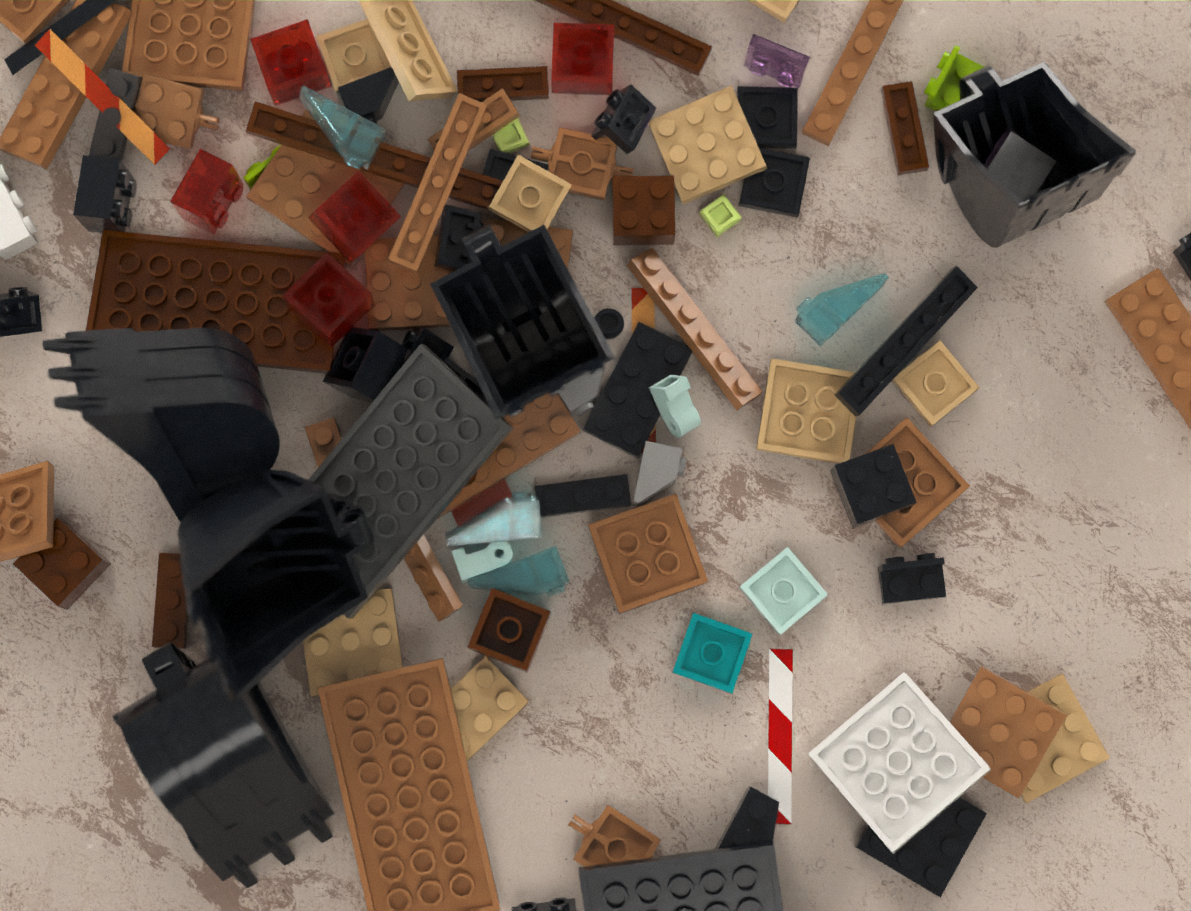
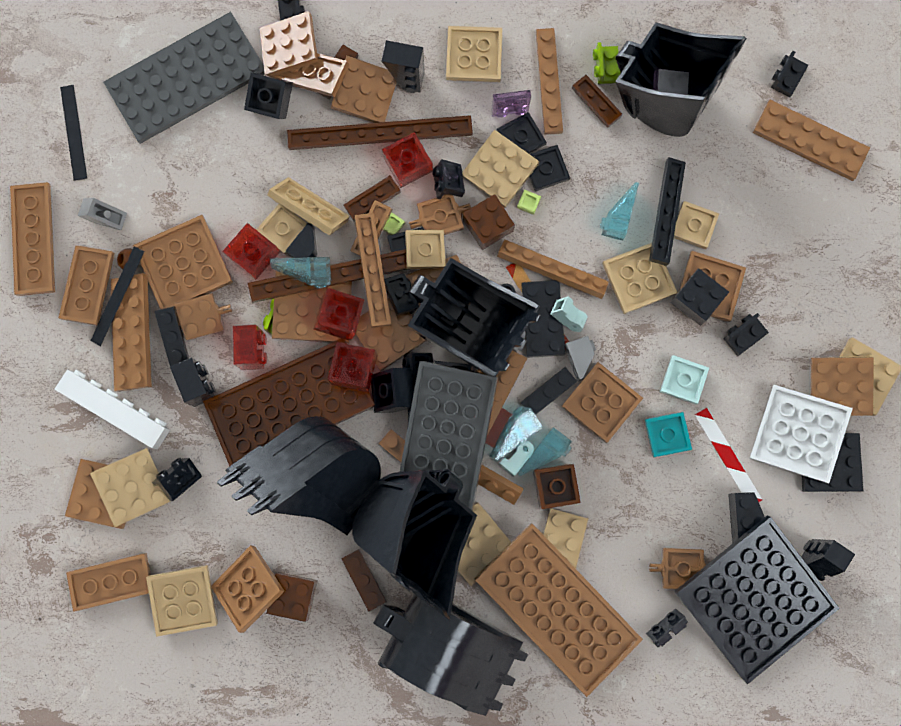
camera: 30 degrees left, 0 degrees up
(101, 95) = (158, 329): clear orange sticker -> none

